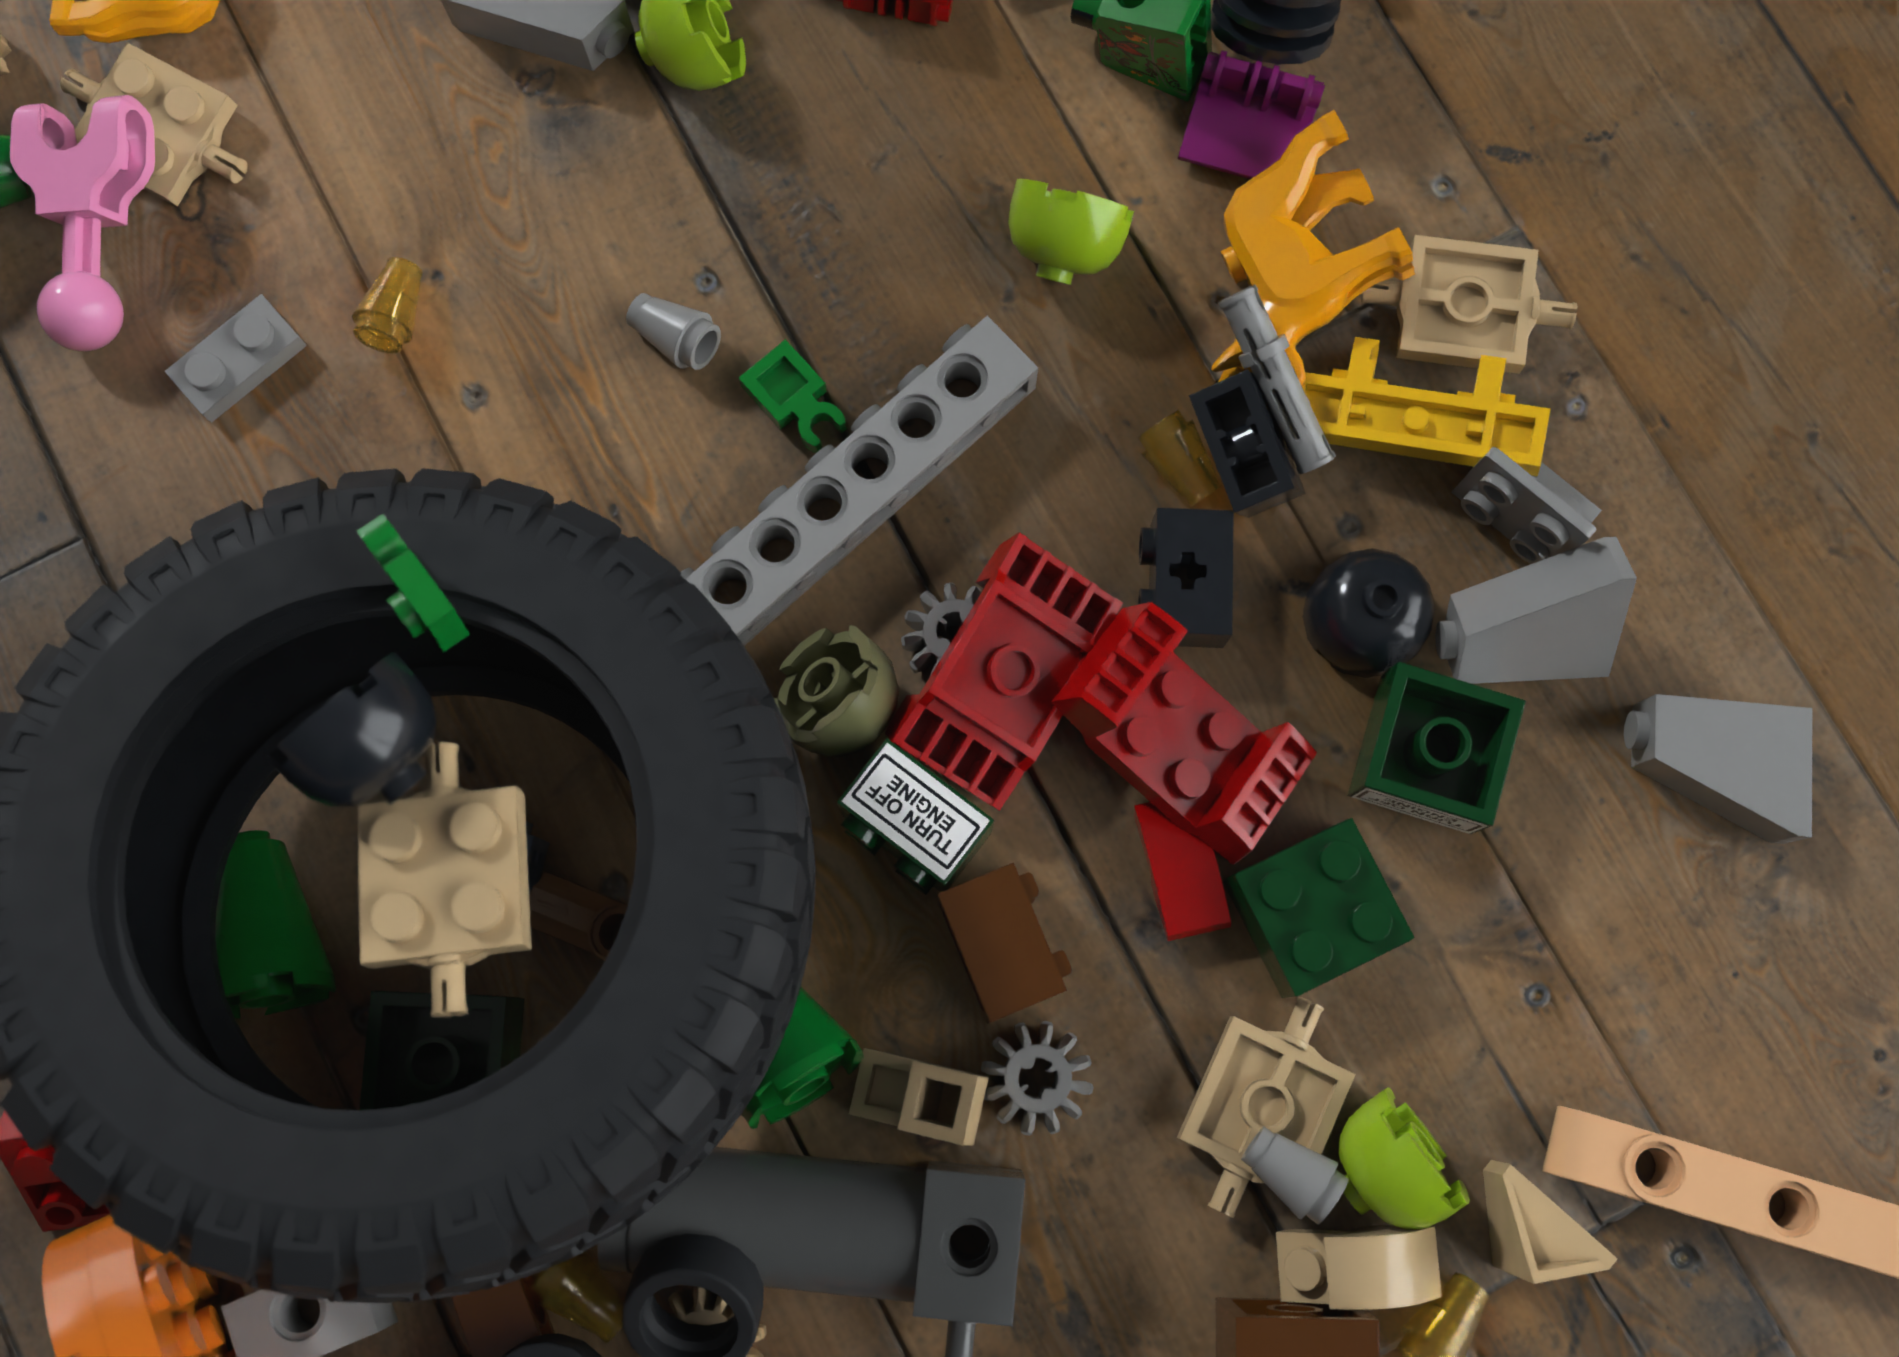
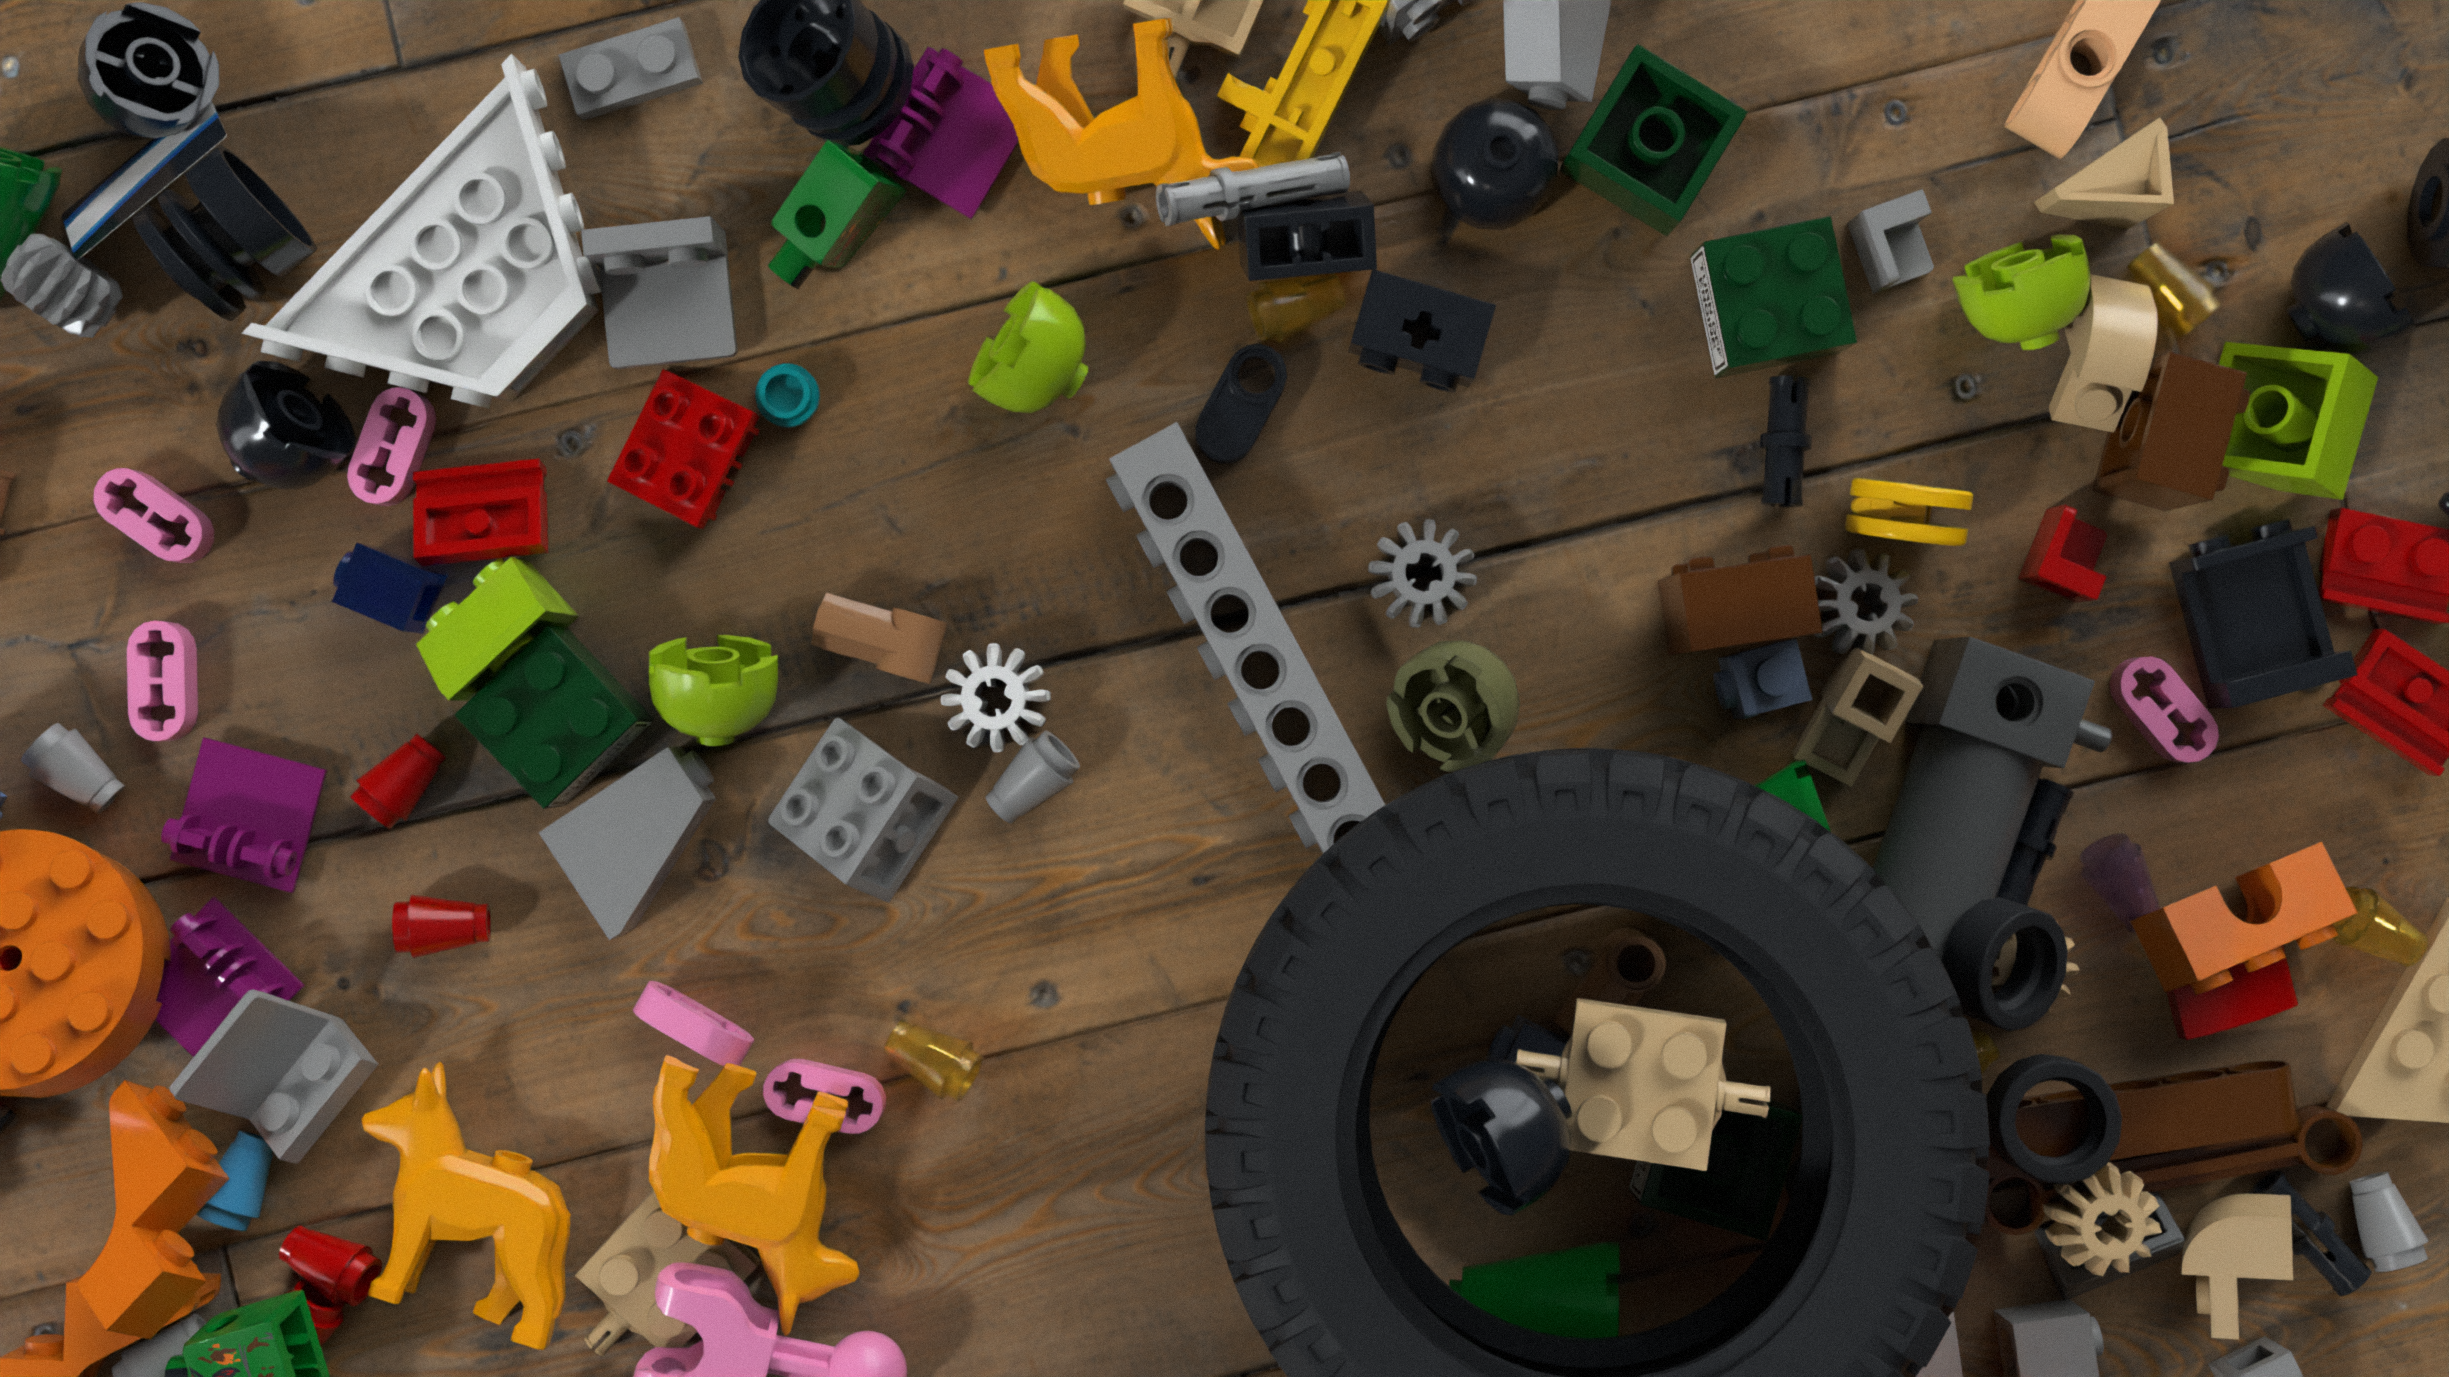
camera: 70 degrees left, 10 degrees up
(222, 163) = (747, 1196): none -> light orange animal
(235, 358) = (946, 1227): light grey plate -> none
(324, 221) = (827, 1080): none -> bright pink beam
(378, 91) = (693, 1024): none -> bright pink beam
(419, 599) = (1378, 1055): green plate -> none
(602, 191) = (861, 811): none -> light grey bracket
(726, 263) = (975, 705): none -> white gear
(771, 180) = (893, 639): none -> medium nougat piece
(789, 391) = (1124, 677): green plate -> none
(835, 1319) = (2035, 840): none -> black pin
(914, 818) = (1601, 656): brick -> none
(935, 998) = (1762, 679): none -> sand blue bracket
(973, 39) = (787, 395): none -> teal plate
(994, 687) = (1478, 531): red plate -> none
(1058, 431) = (1232, 414): none -> black piece
(1139, 1095) = (1905, 511): none -> yellow head
(1141, 1283) = (2065, 556): none -> red panel
(1179, 735) = (1580, 379): red plate -> none
(1179, 962) = (1785, 441): none -> black pin
(1182, 876) = (1696, 413): red slope -> none
(1261, 1082) = (1939, 397): tan plate -> none
(1296, 1174) = (2015, 387): light grey cone -> none
(1409, 1020) = (1892, 241): none -> light grey panel

